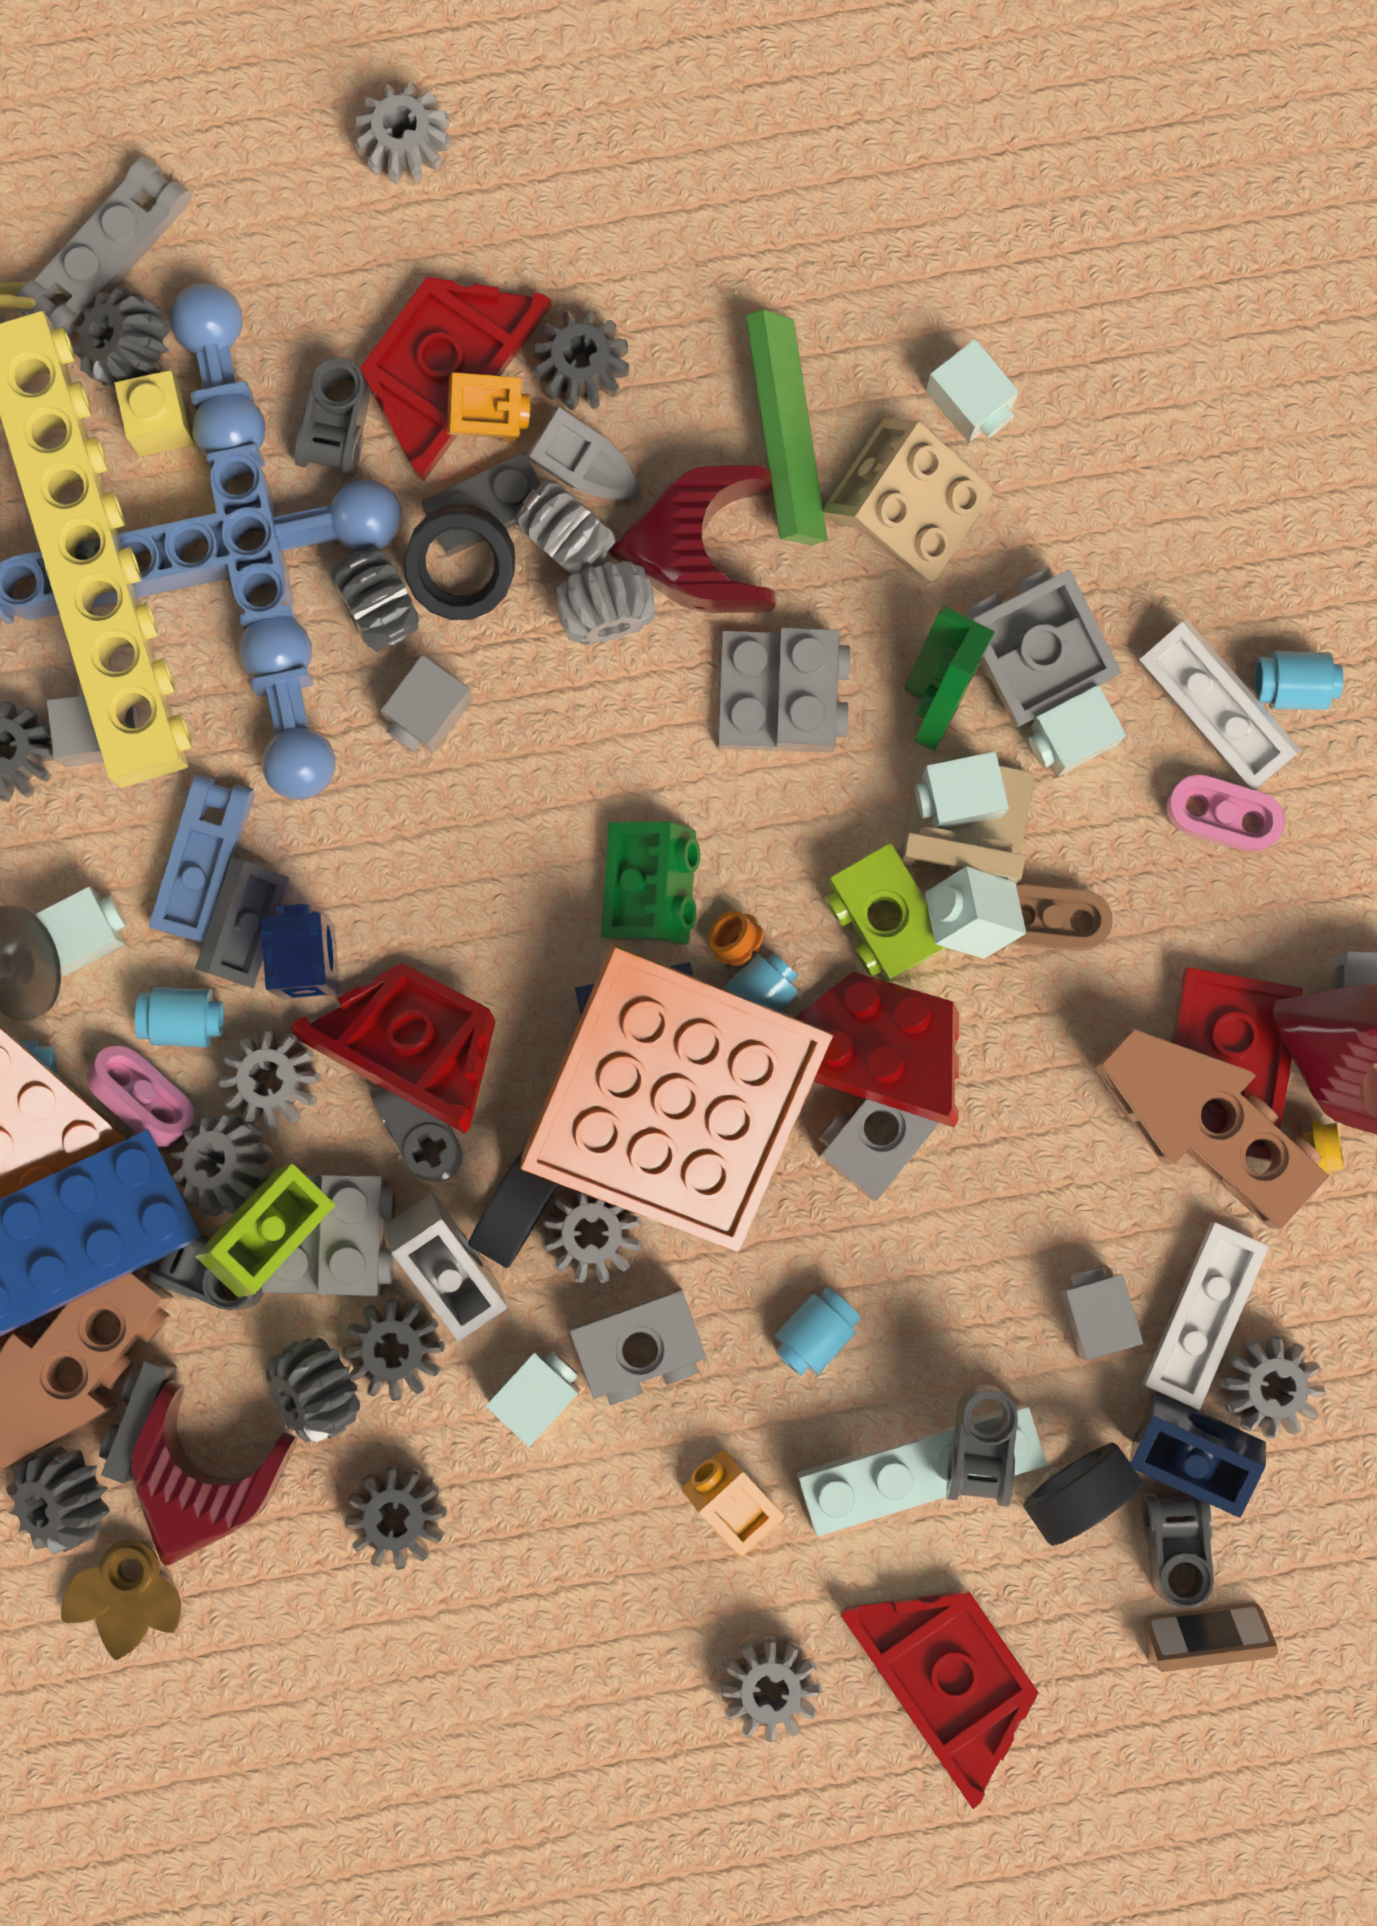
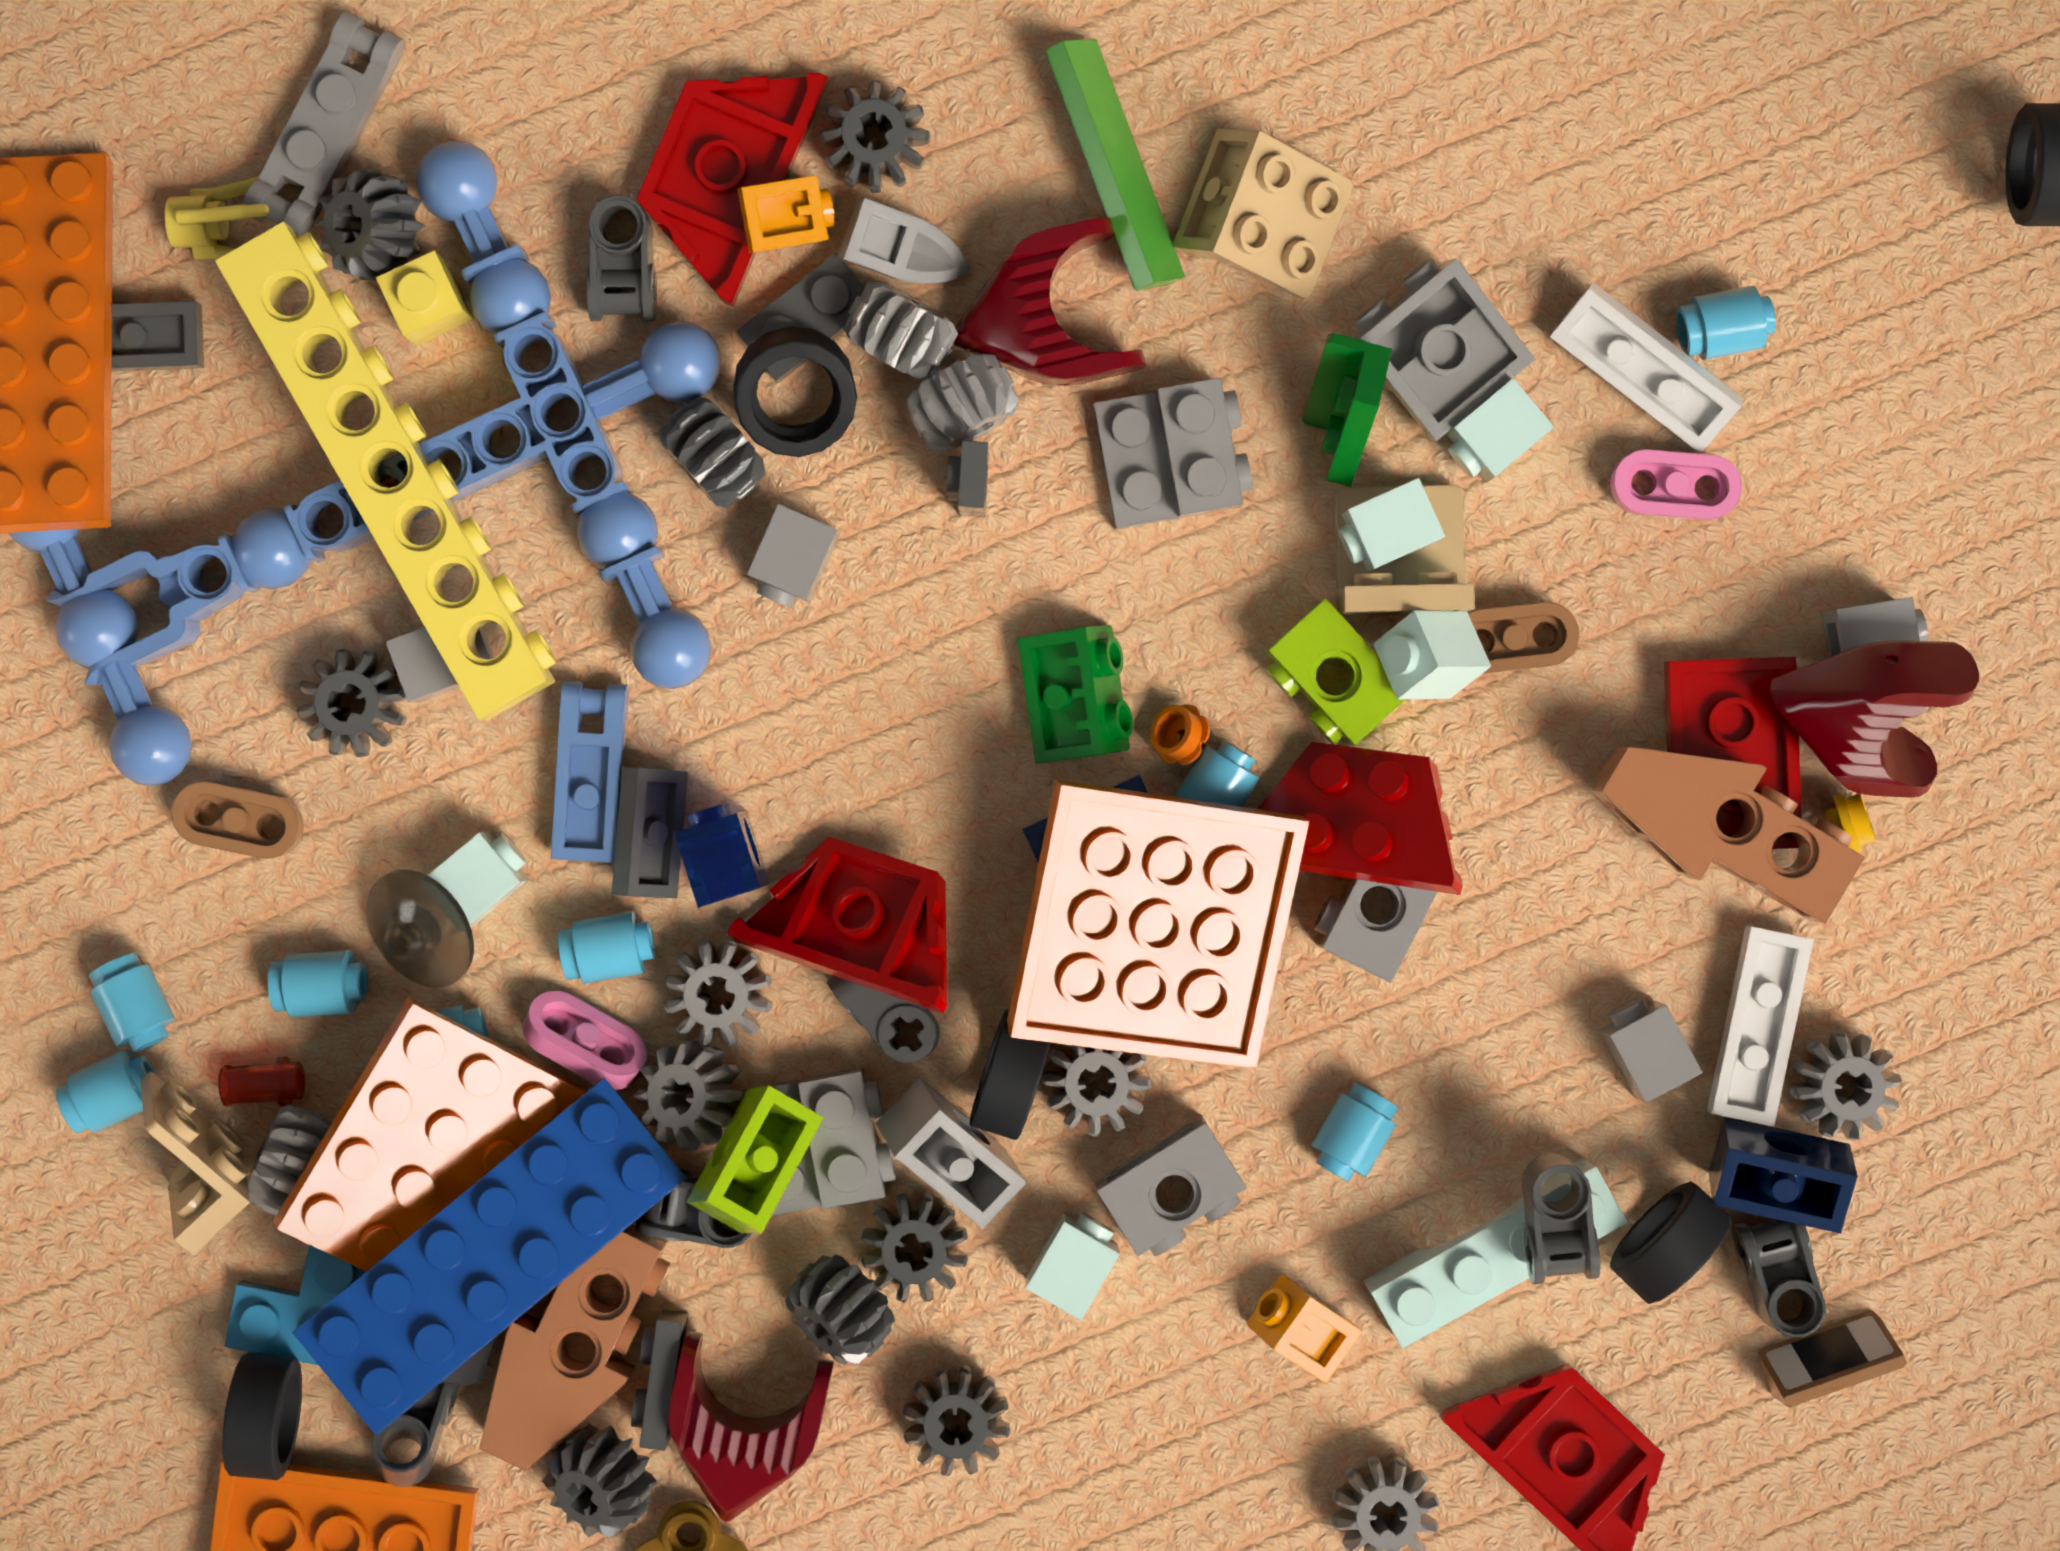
camera: 10 degrees left, 5 degrees up
(597, 668) = (968, 478): none -> dark grey plate
(973, 392) = (1310, 80): light aqua brick -> none

